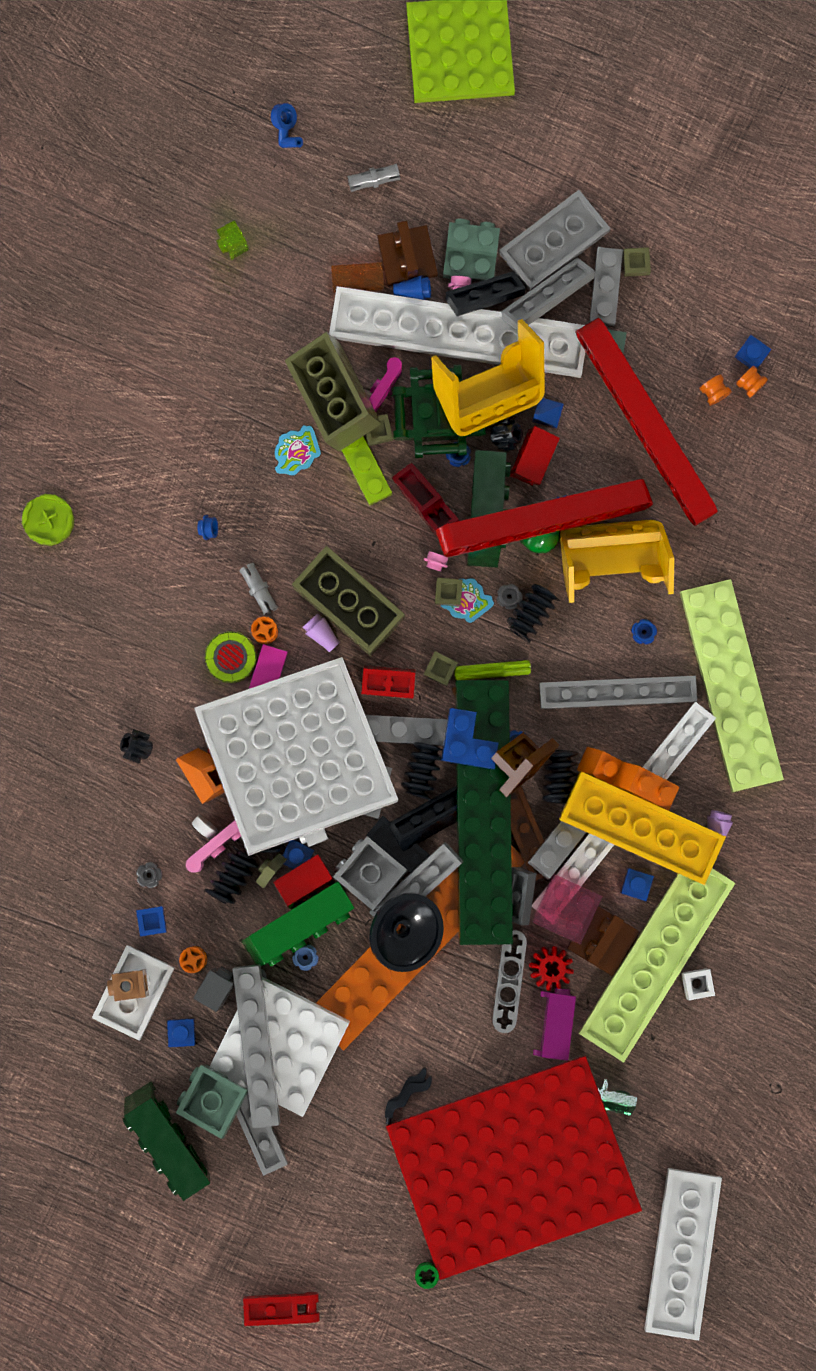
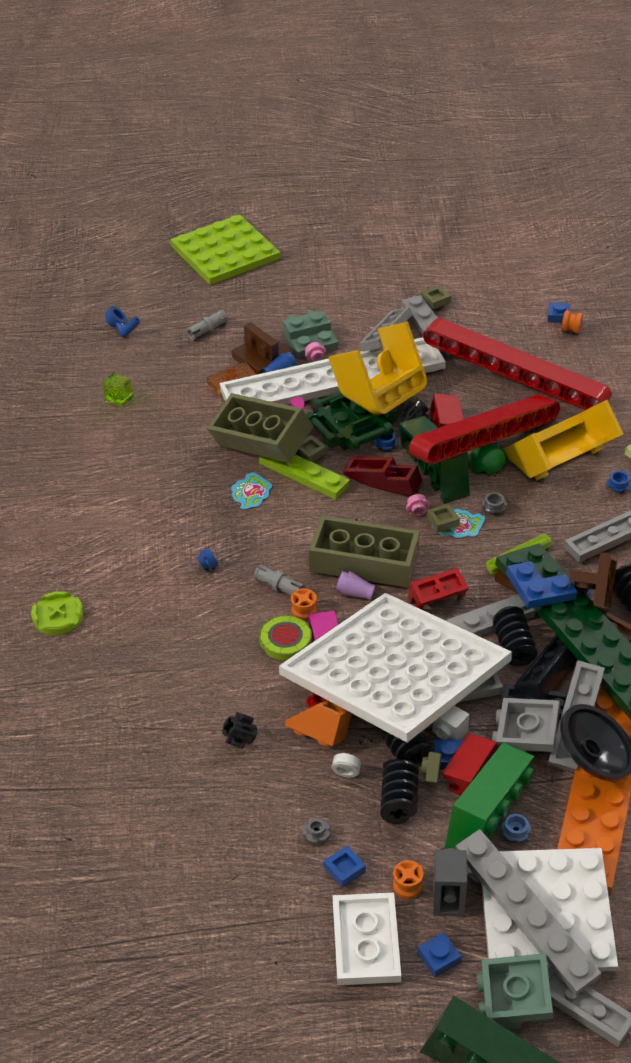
camera: 25 degrees left, 40 degrees down
(138, 984) = (360, 920): medium nougat brick -> none
(213, 847) = (367, 773): bright pink plate -> none
(440, 668) = (475, 568): olive plate -> none
(485, 293) = (337, 346): black plate -> none
(531, 612) = (521, 501): black piece -> none
(548, 413) = (429, 392): blue slope -> none
(554, 240) = (366, 307): light grey plate -> none
(715, 390) = (550, 335): orange wheel -> none

